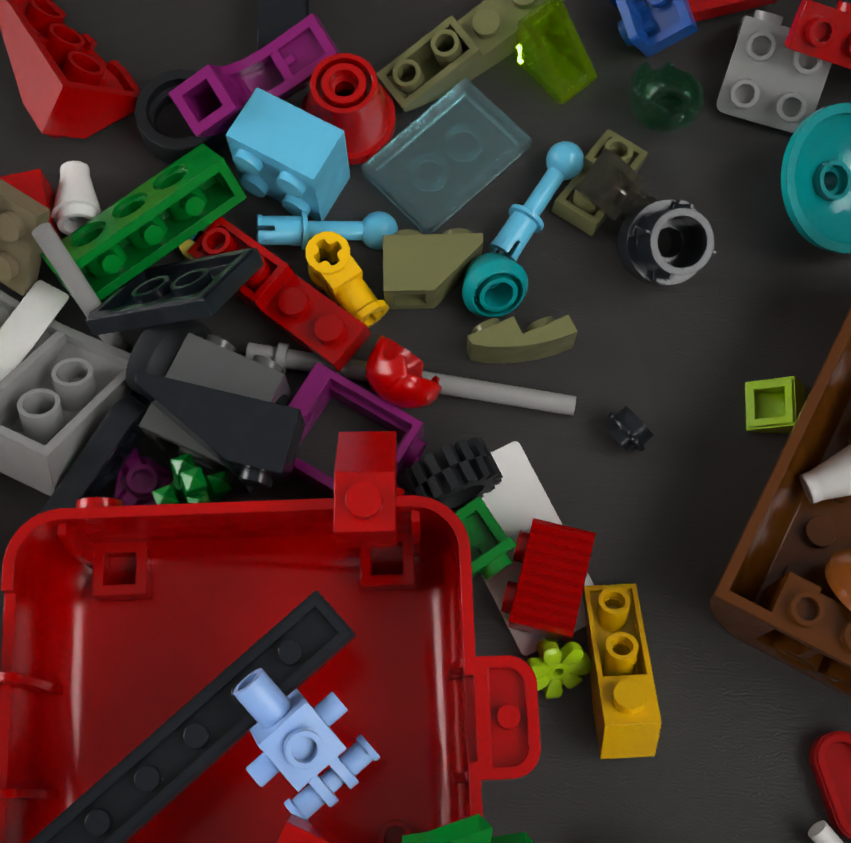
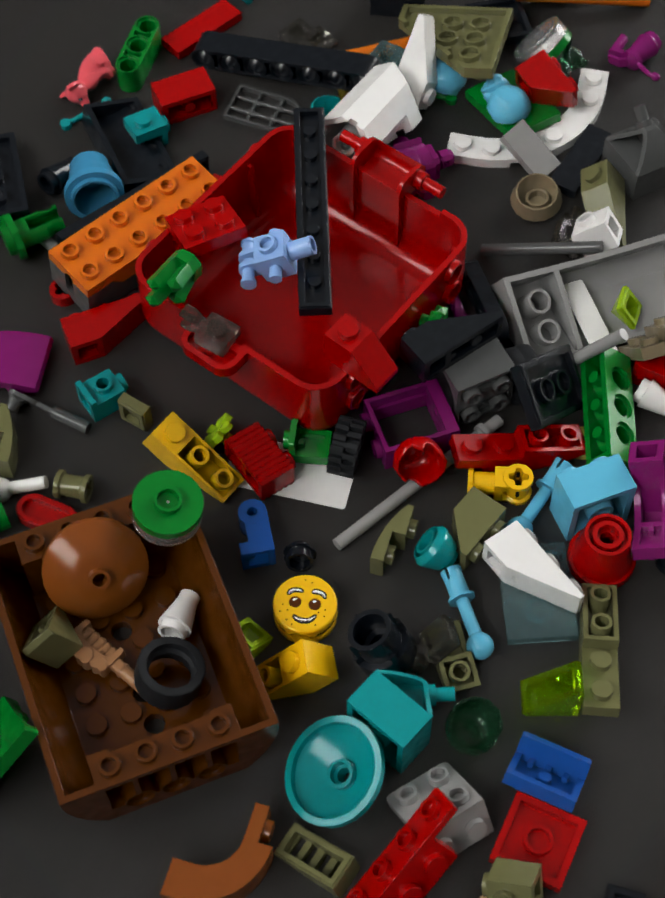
camera: 130 degrees right, 15 degrees down
(438, 171) = (526, 566): none -> white slope
(490, 723) = (213, 333): none -> clear smoke plate
(622, 807) = (135, 412): none -> olive tile
(637, 511) = (255, 525): none -> blue leg
(689, 367) = (305, 608): none -> yellow head
(734, 162) = (398, 712): none -> teal piece
(770, 312) = (299, 670): none -> yellow slope
(786, 553) = (167, 507): none -> green piece
(790, 787) = (73, 486): none -> olive bush

